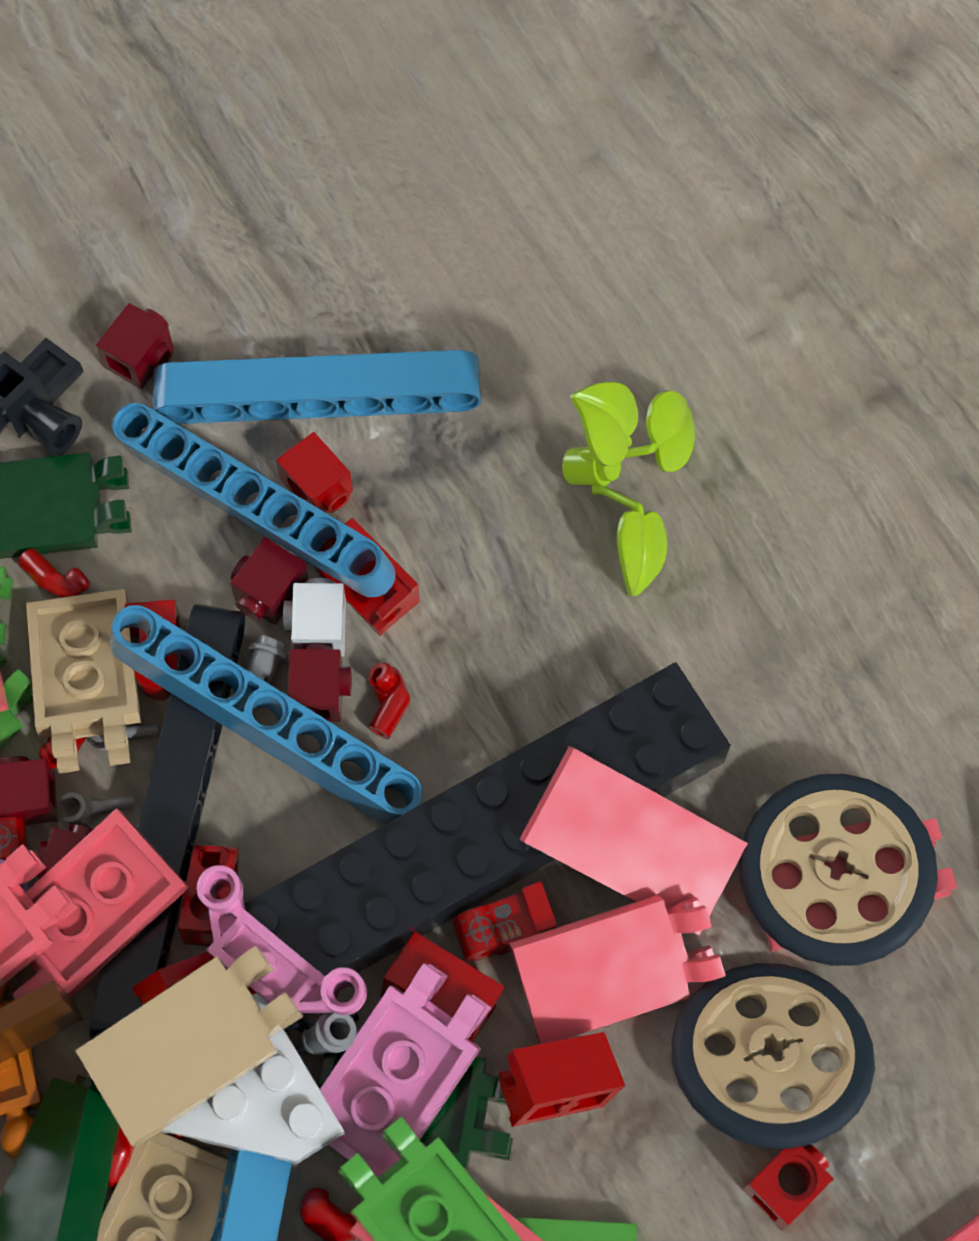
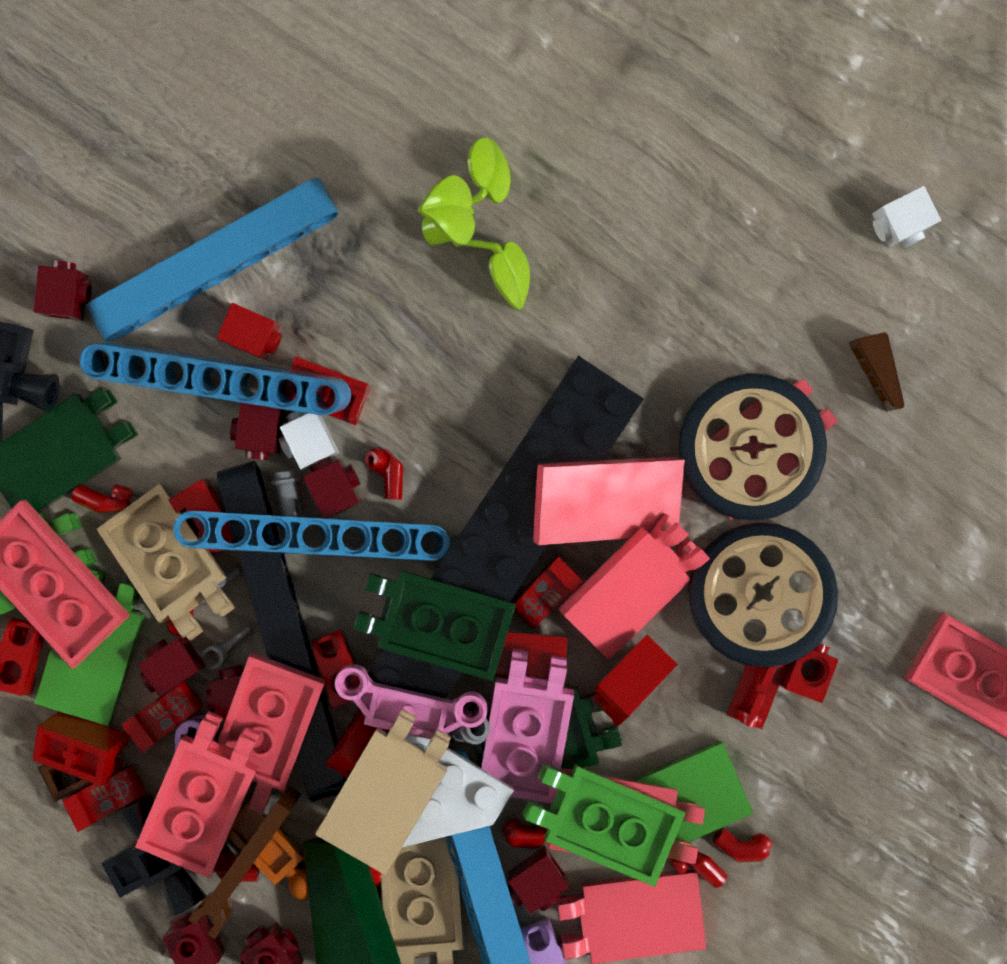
camera: 20 degrees left, 20 degrees up
(359, 879) = (439, 623): none -> dark green tile
(712, 1179) = (755, 694): none -> red hinge

